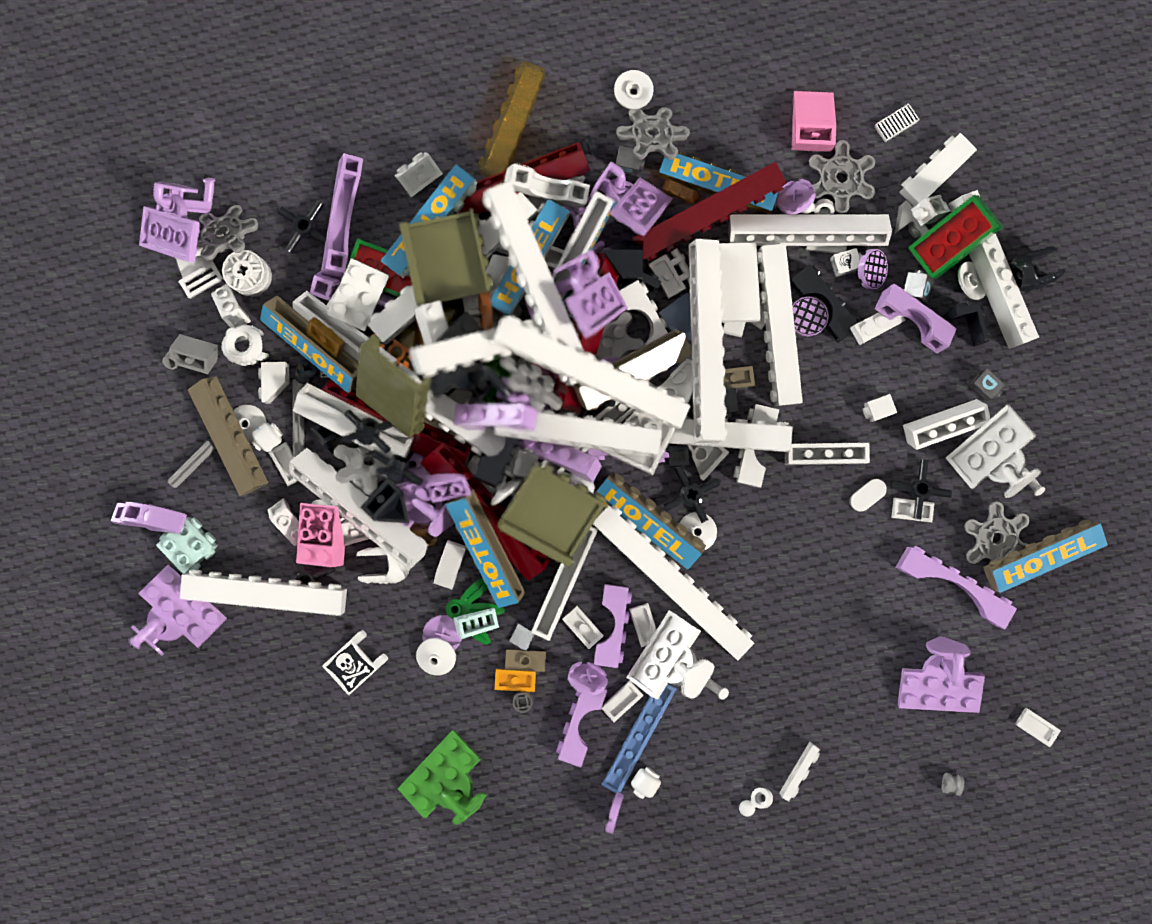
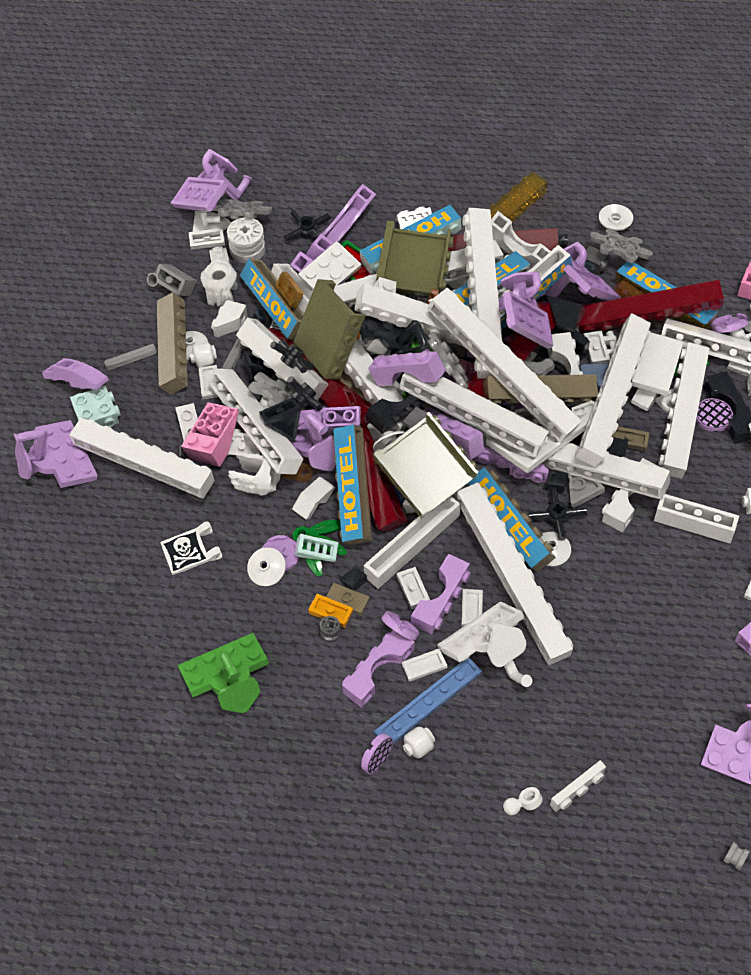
camera: 15 degrees right, 30 degrees down
(868, 495) = (726, 569): white tile -> none

